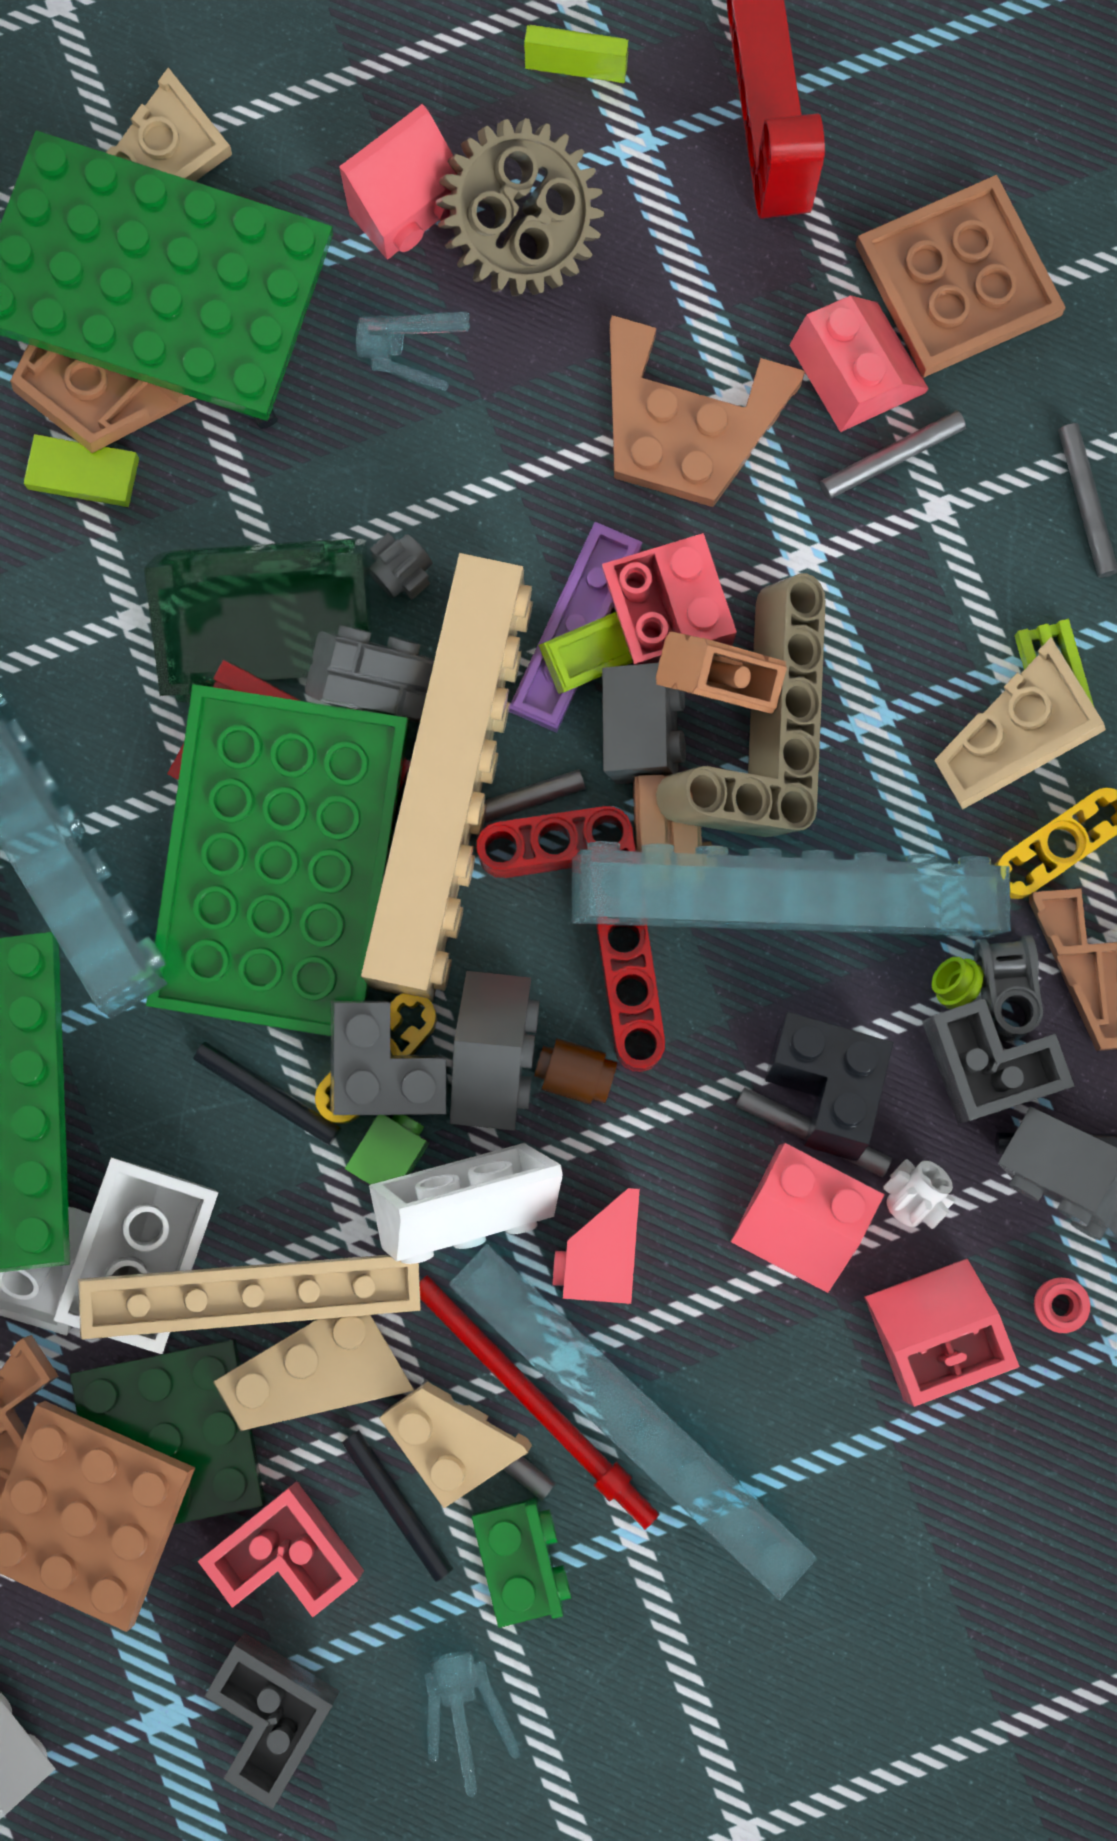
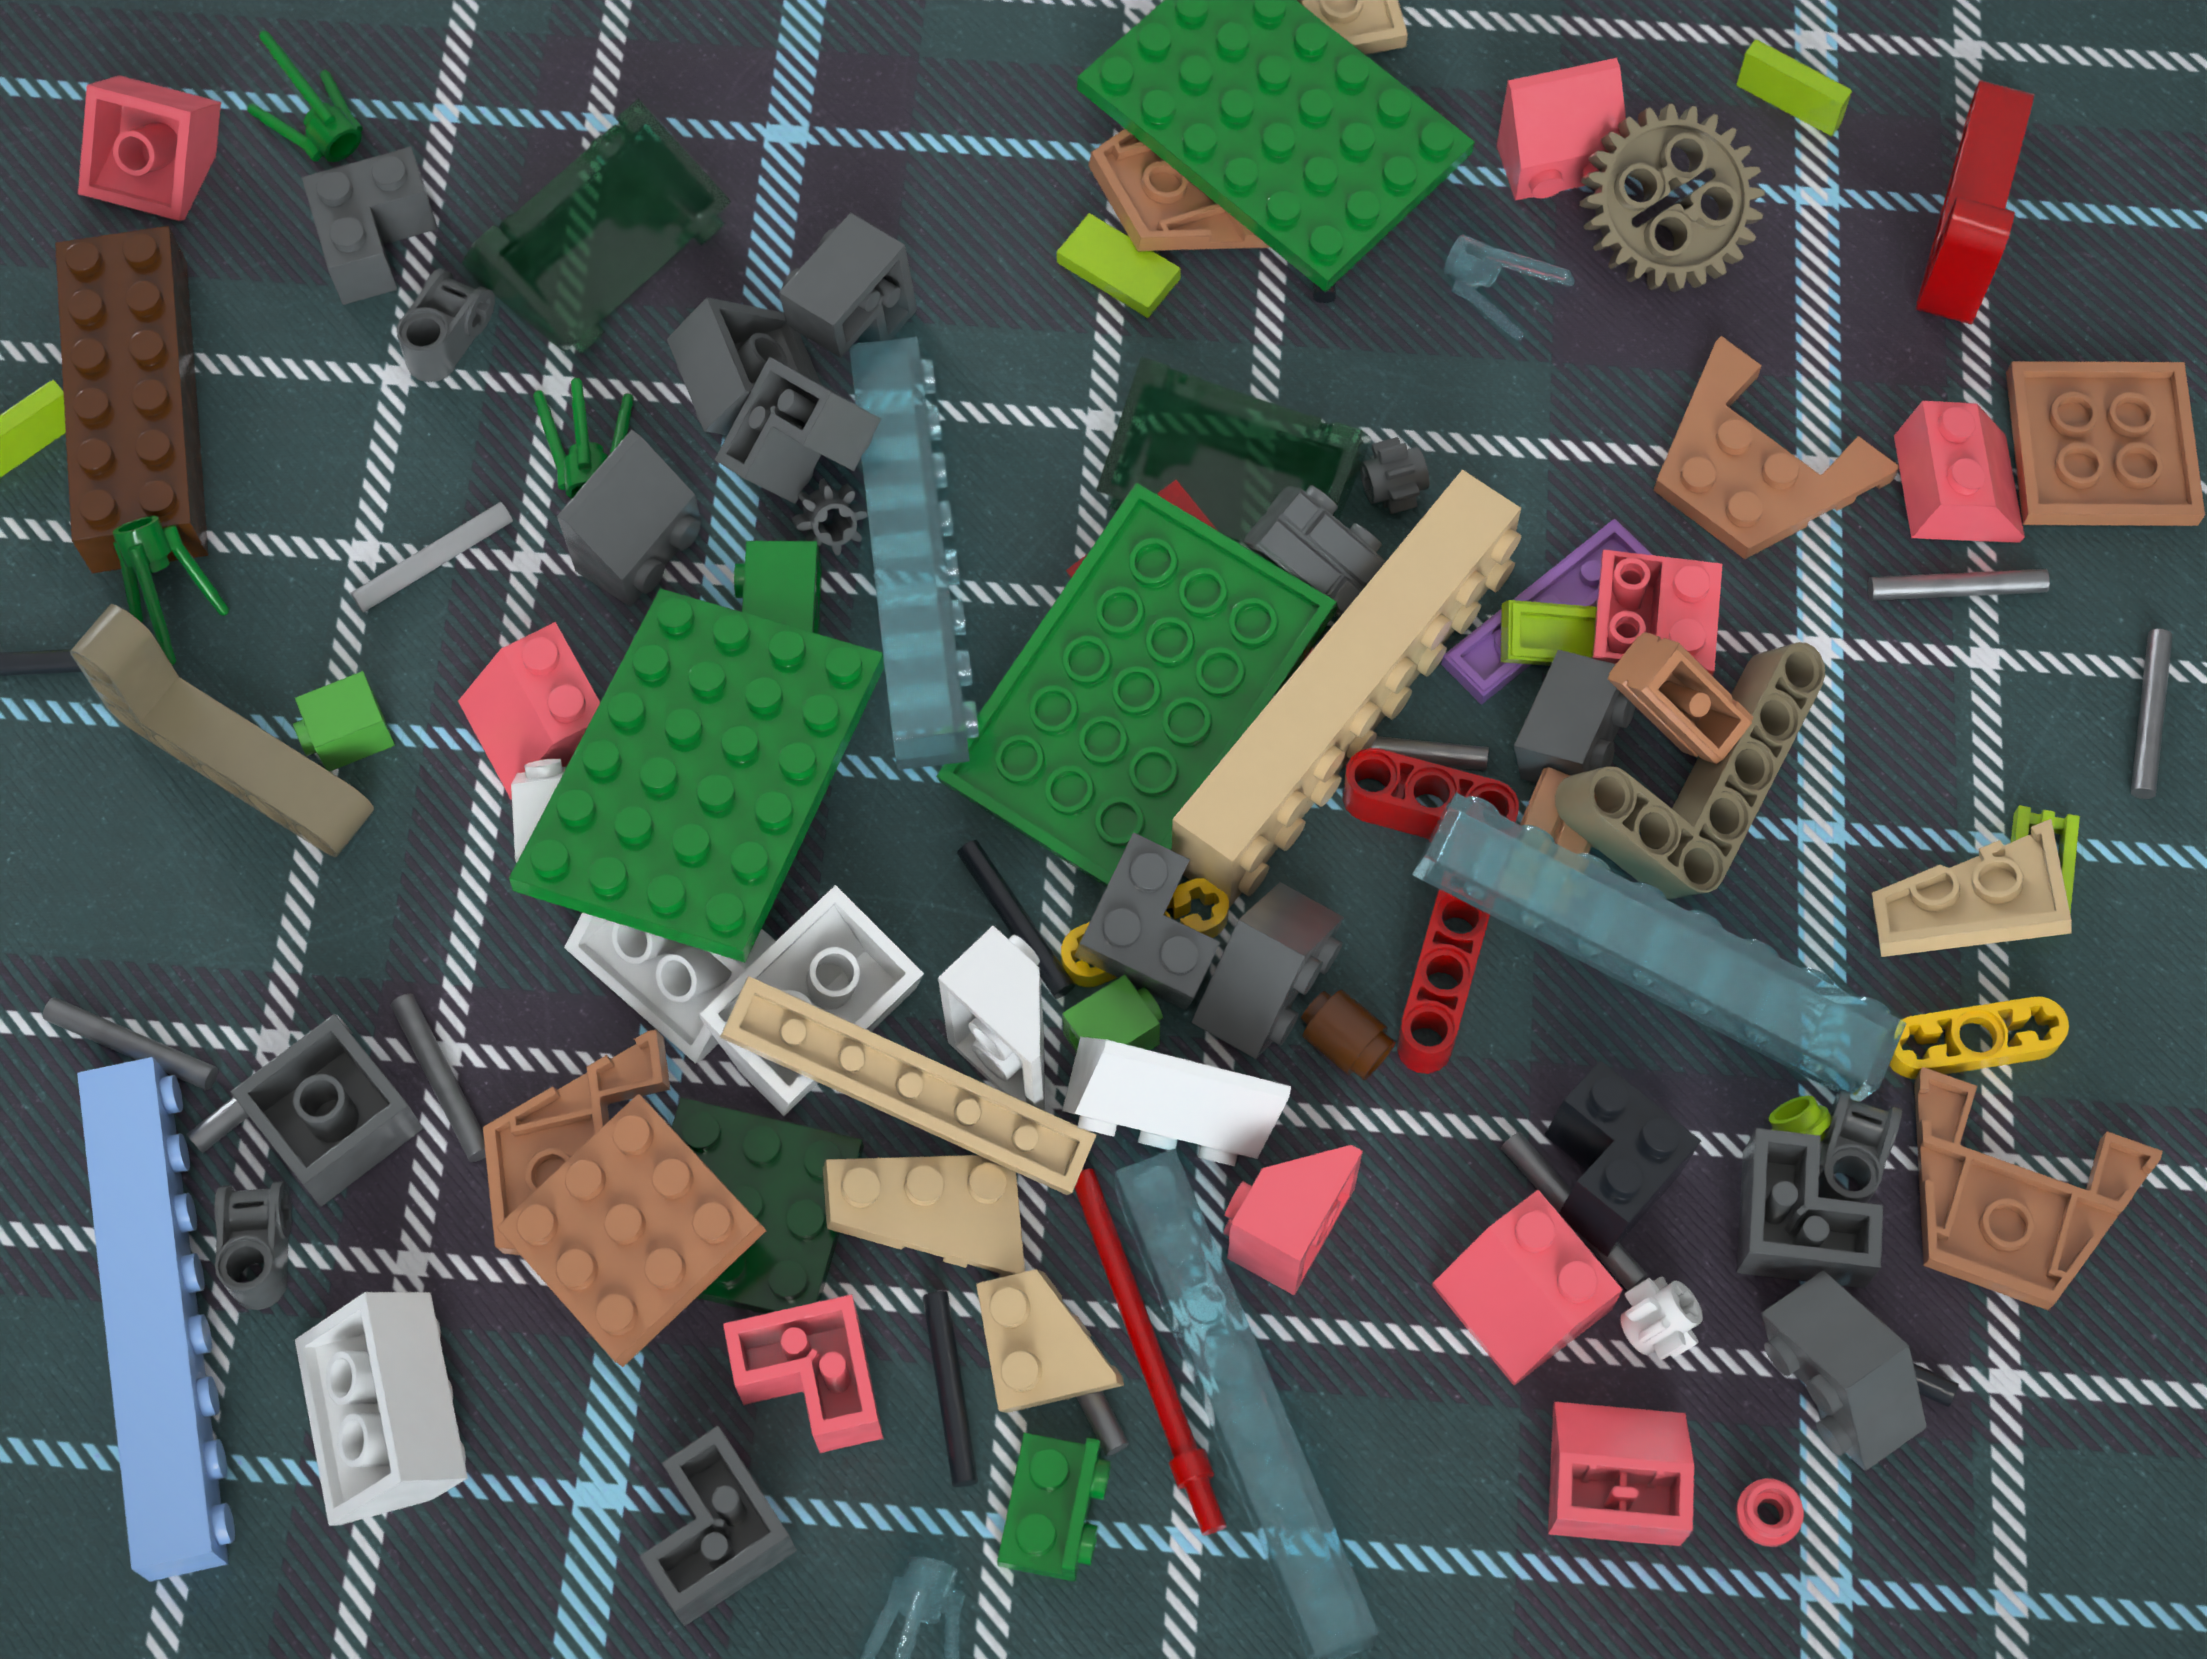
camera: 25 degrees right, 15 degrees down
(302, 1204) = (997, 1014): none -> white slope

